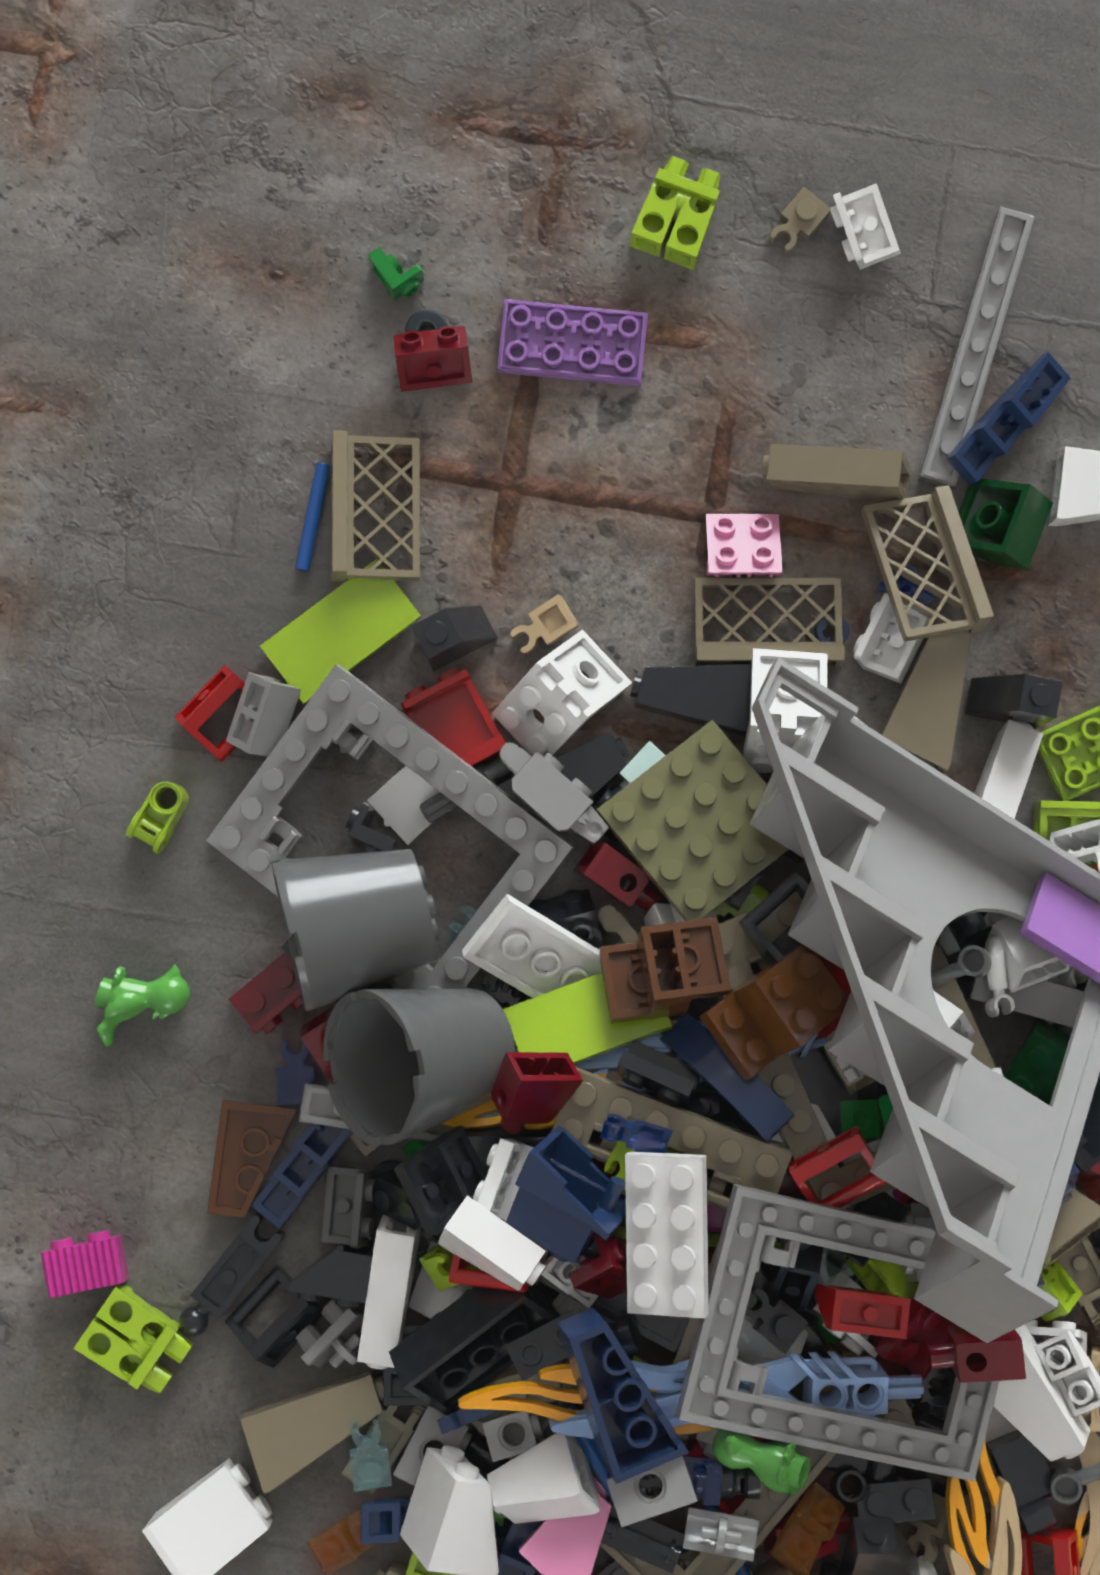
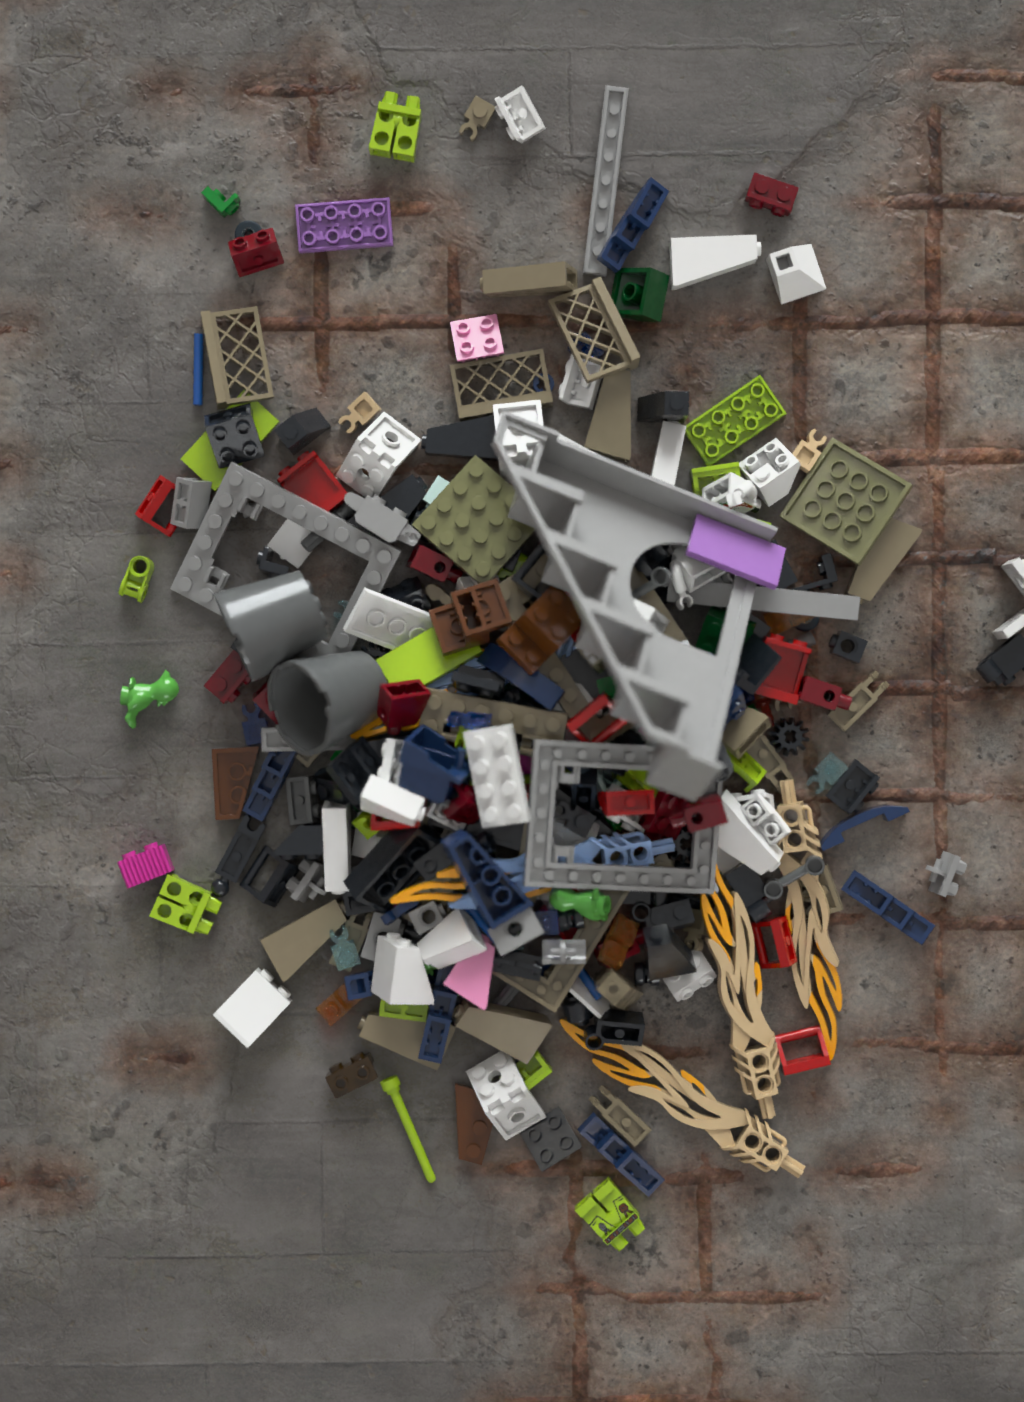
camera: 15 degrees left, 5 degrees up
(348, 625) = (233, 435): none -> black bracket

